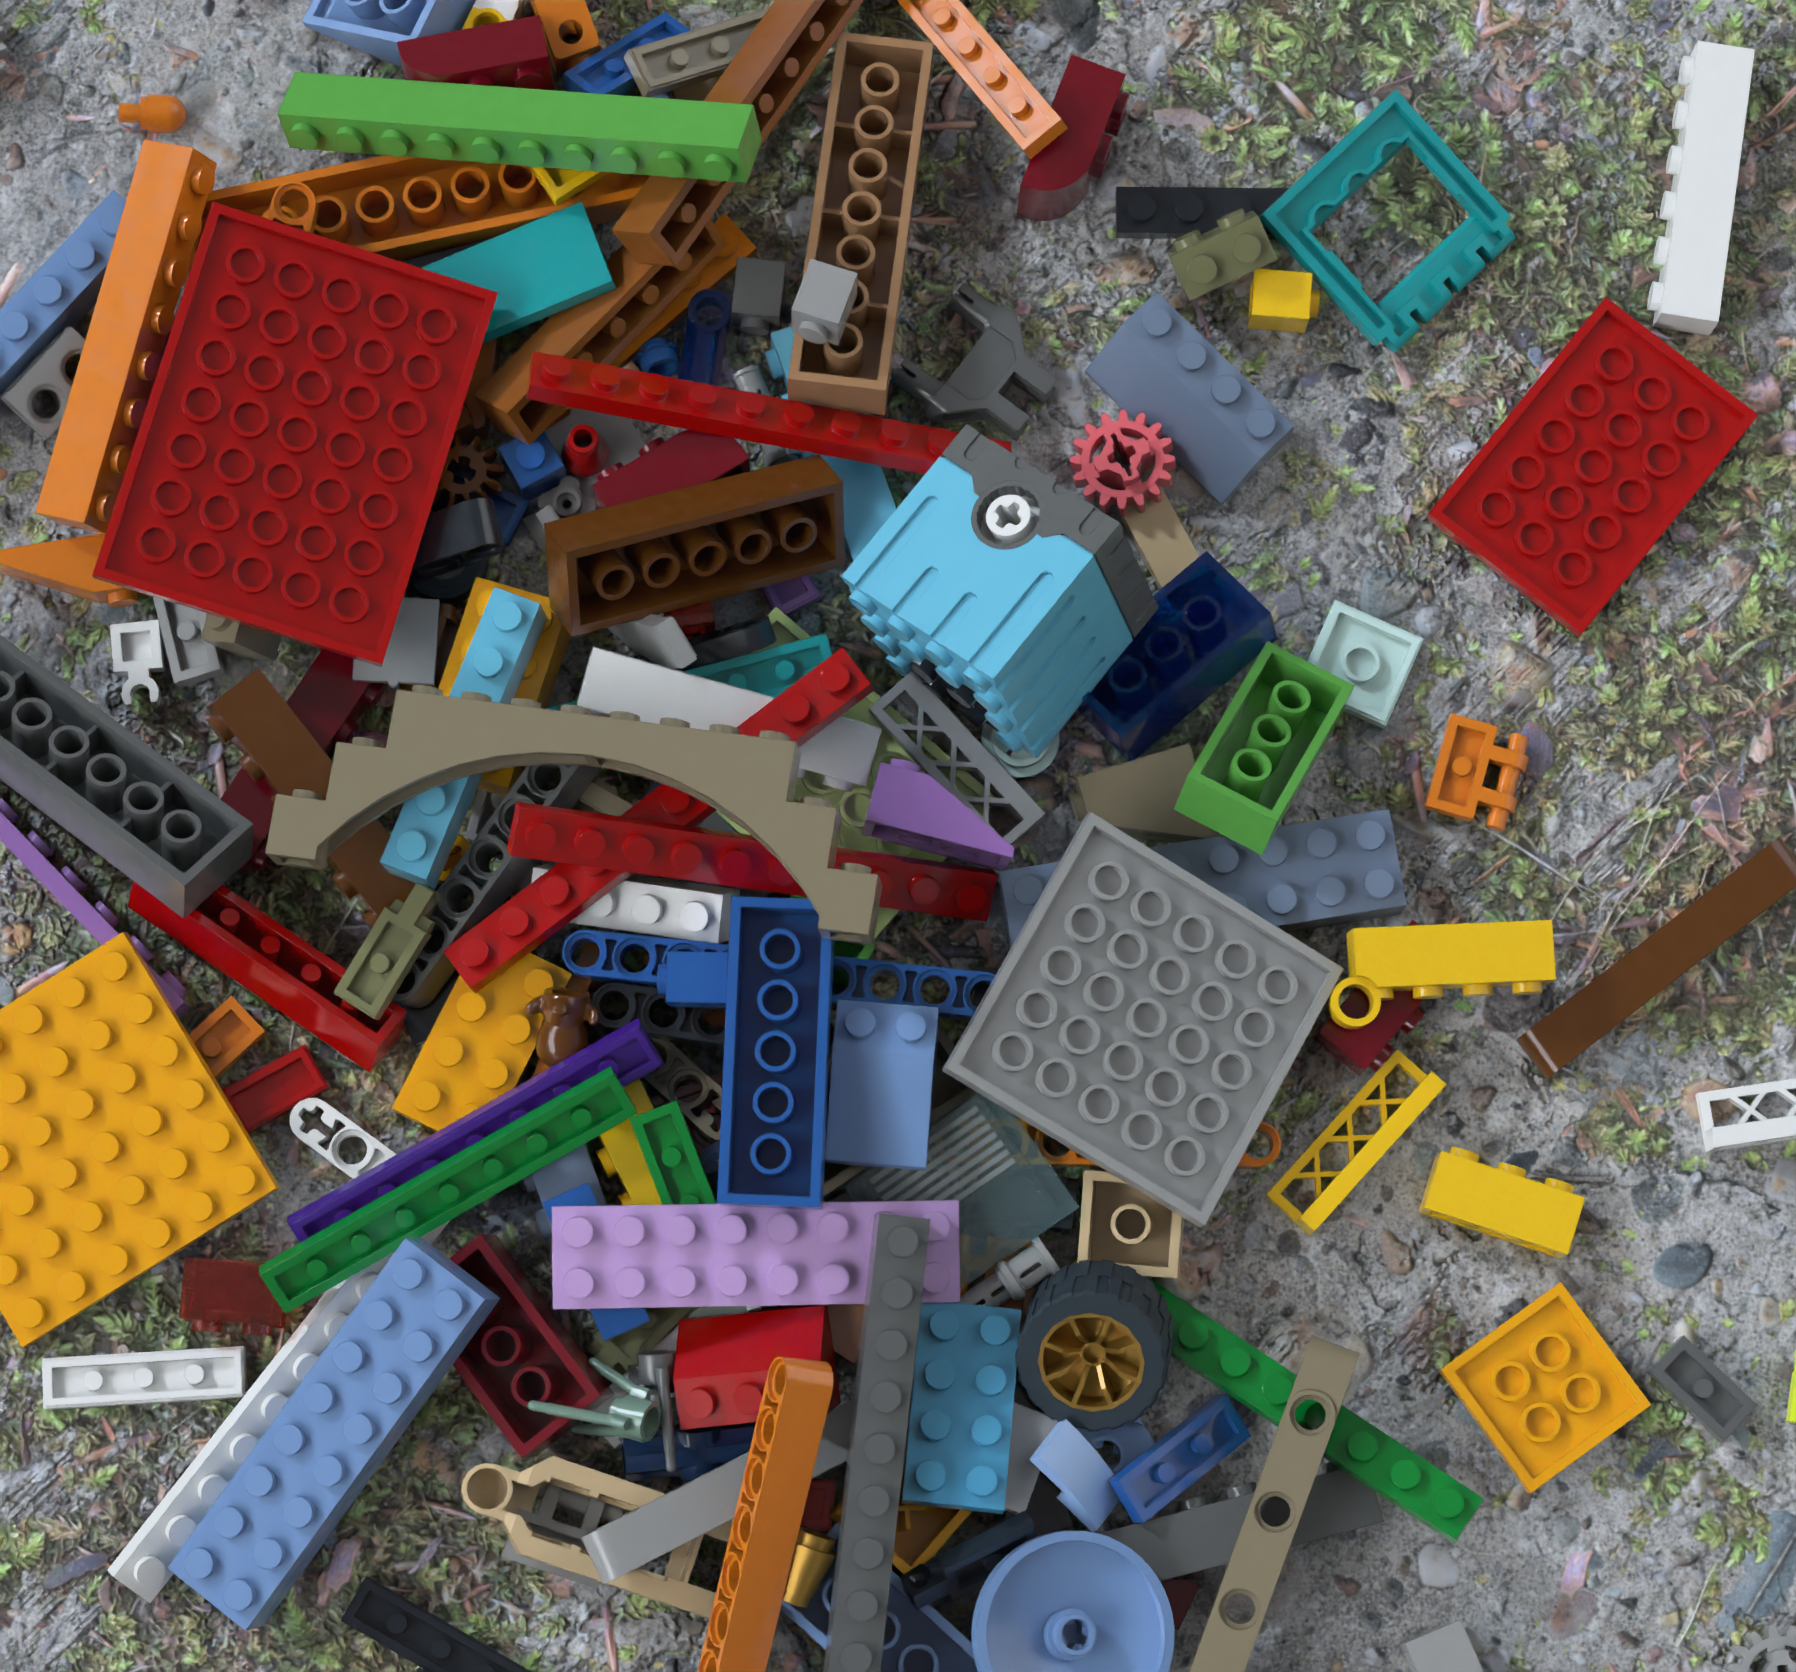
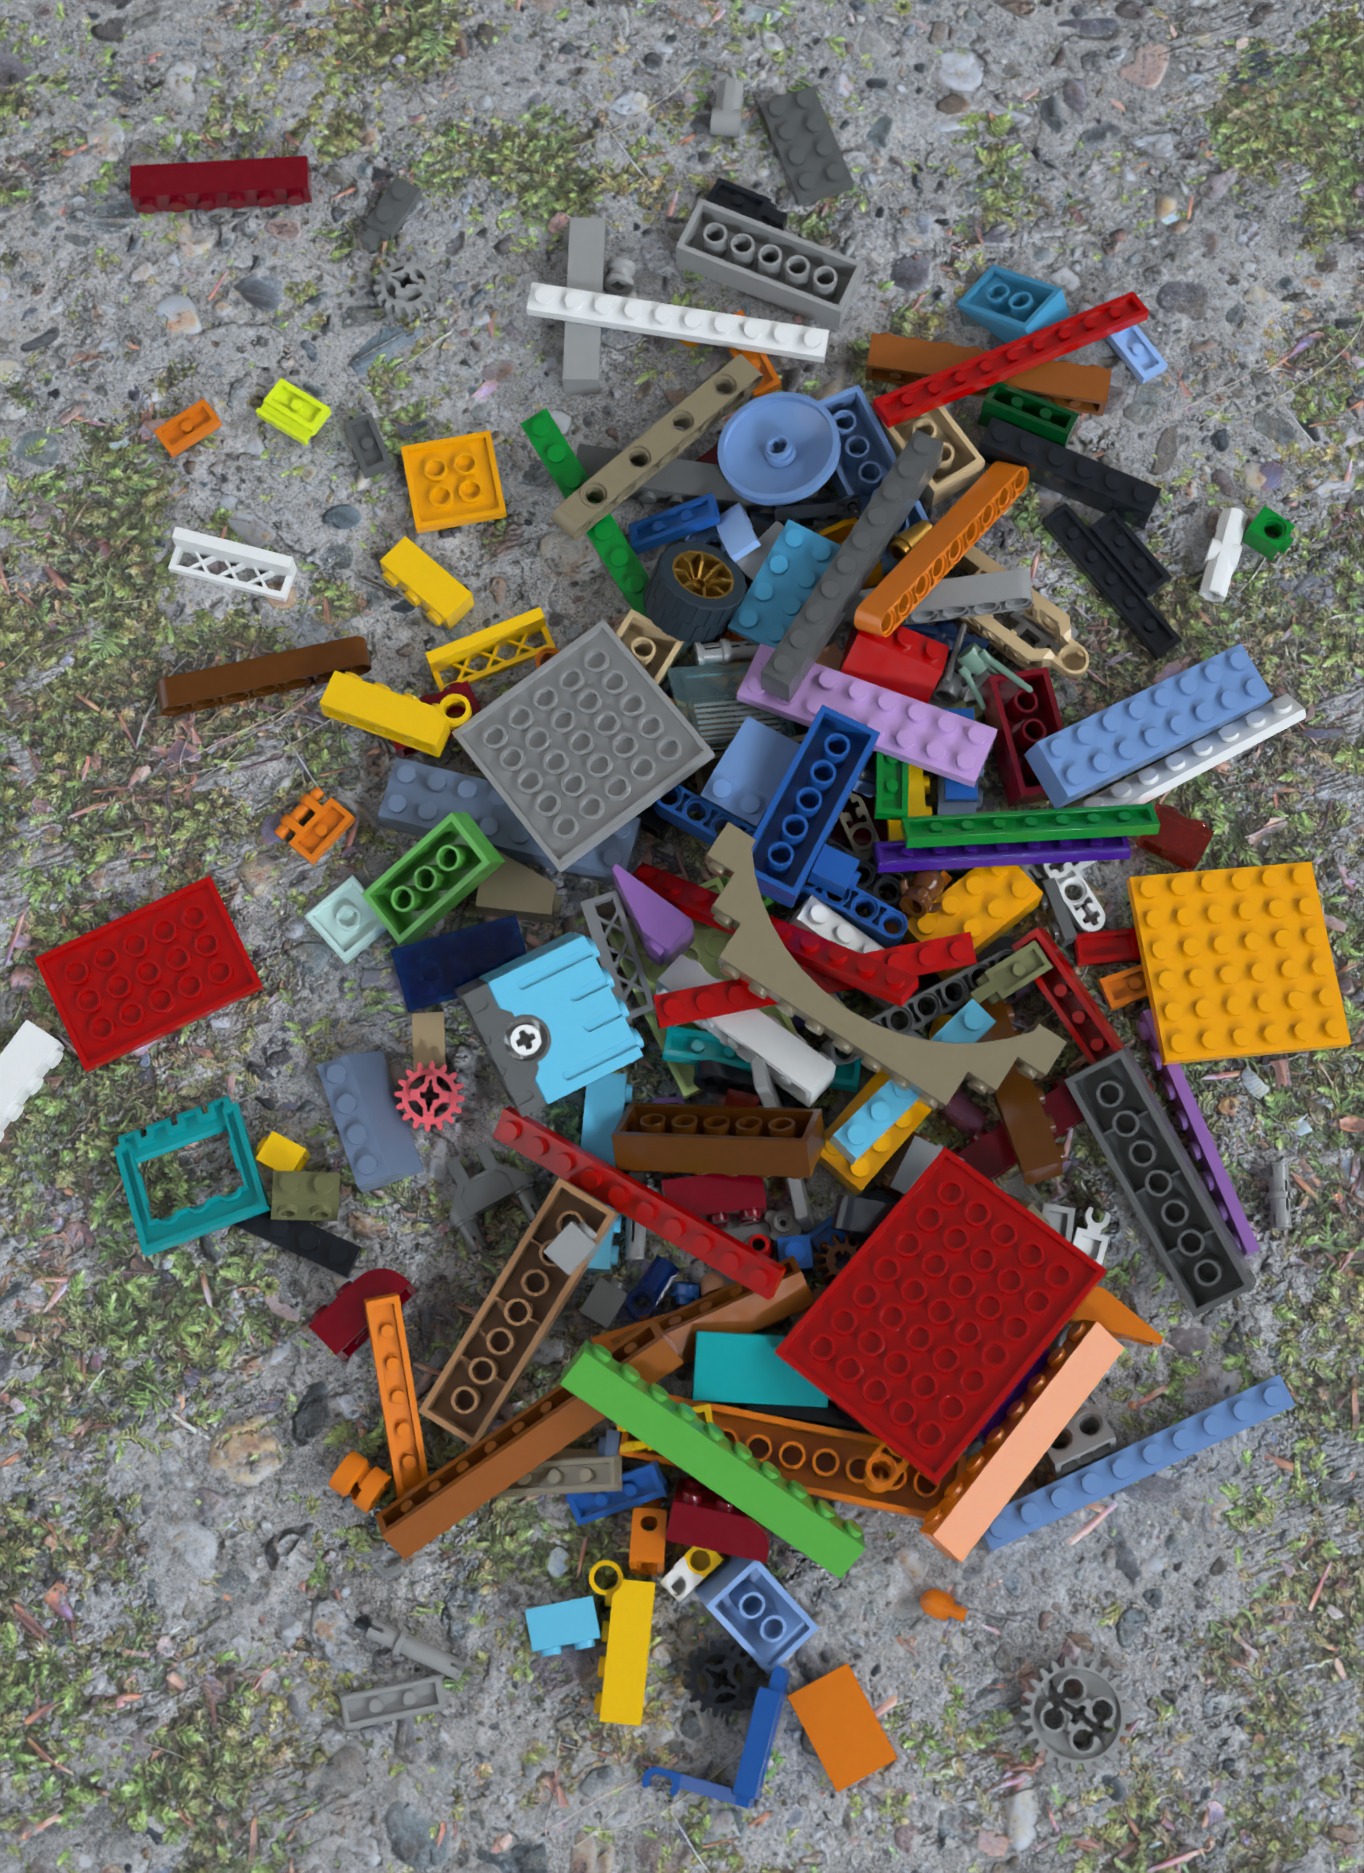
camera: 150 degrees left, 5 degrees down
(144, 1377) = (1244, 817): white tile -> none
(351, 1086) = (1060, 923): none -> dark grey plate

